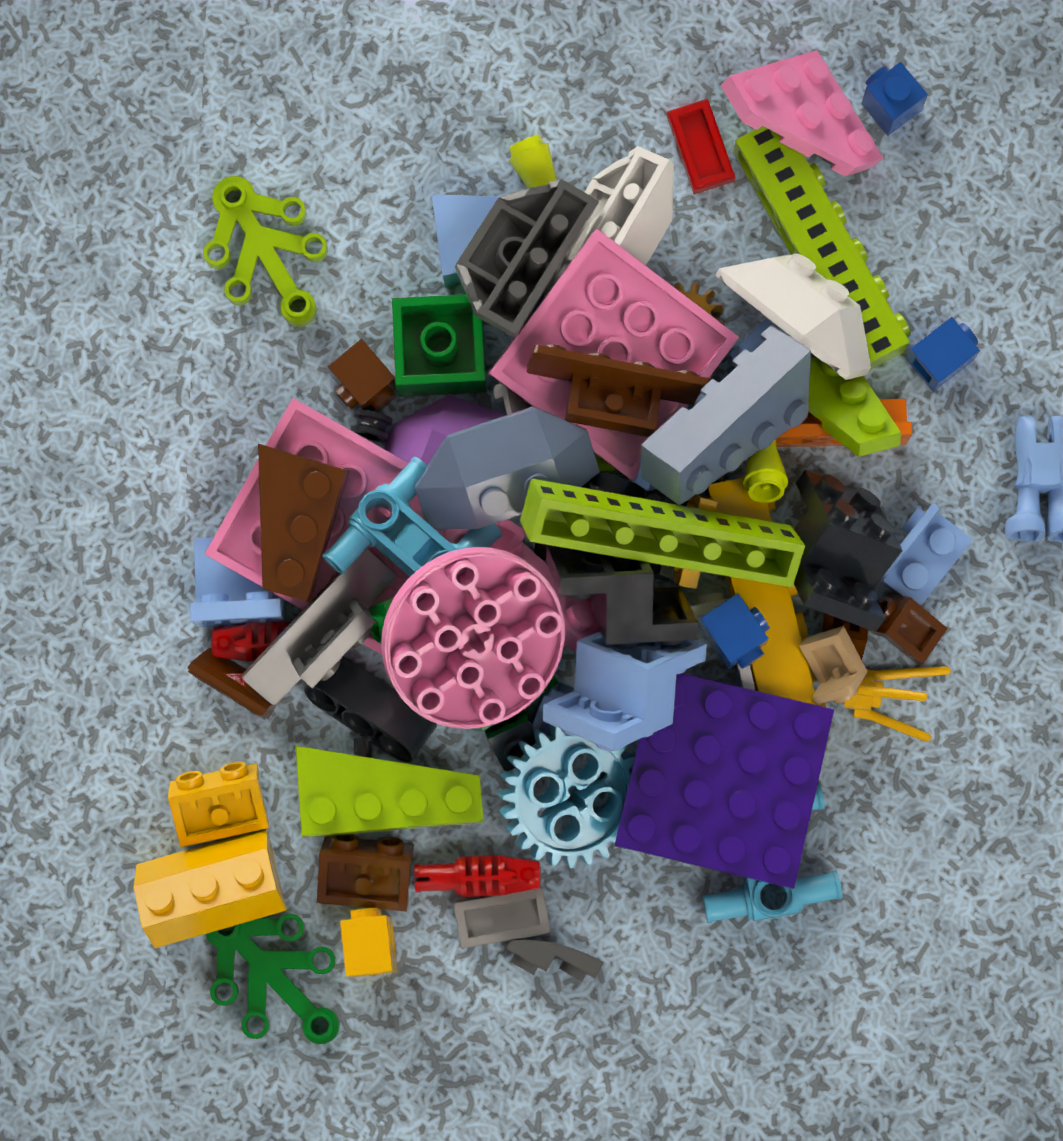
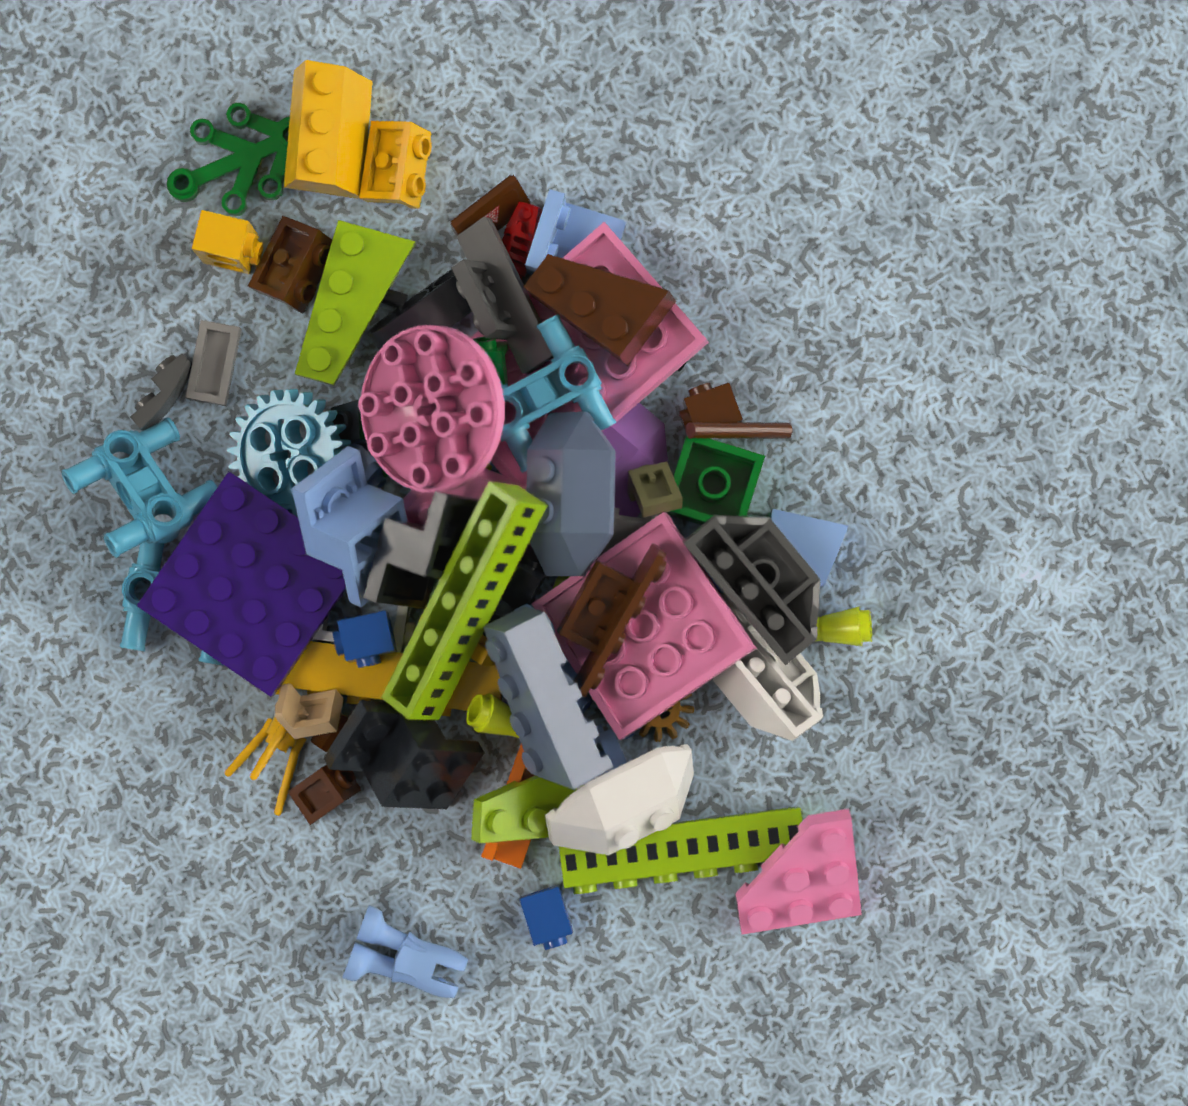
camera: 110 degrees right, 5 degrees up
(261, 243) = (863, 366): lime plant -> none
(371, 425) = (667, 403): black bush -> none
(374, 338) = (738, 430): none -> reddish brown bar
(468, 393) = (654, 489): none -> olive bracket
(480, 875) = (253, 356): red hinge -> none
(665, 936) = (140, 486): none -> medium azure piece
(700, 146) = (812, 779): red tile -> none
(893, 97) = (791, 963): blue brick -> none
(926, 554) = (380, 832): light blue bracket -> none

